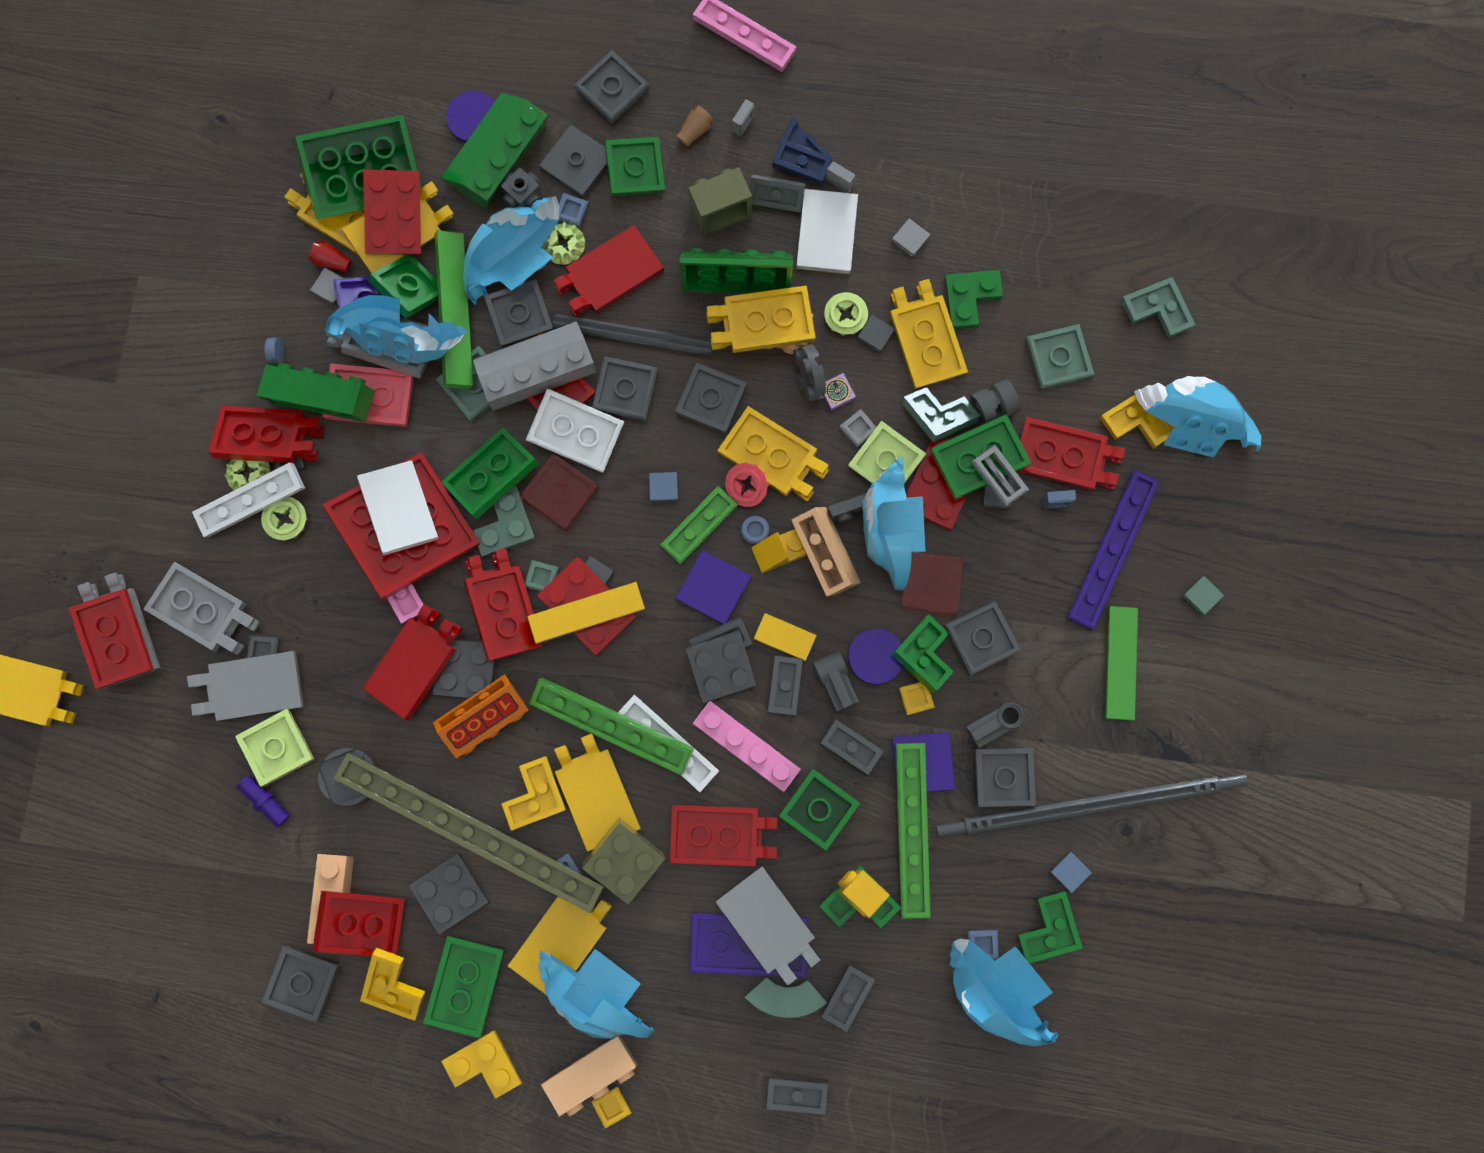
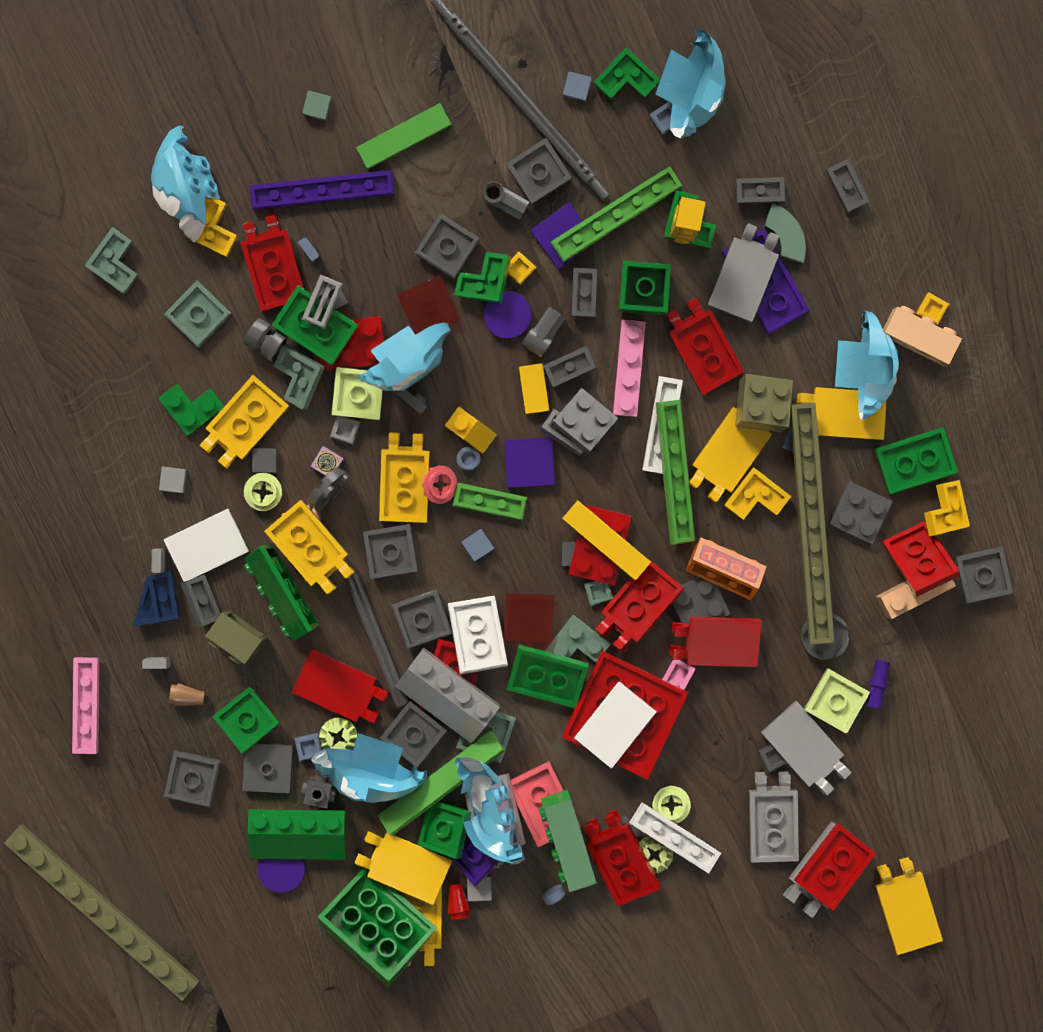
camera: 125 degrees left, 10 degrees up
(392, 212) = (397, 875): red plate -> none
(485, 1057) = (952, 414): yellow plate -> none
(826, 551) = (454, 395): light nougat brick -> none

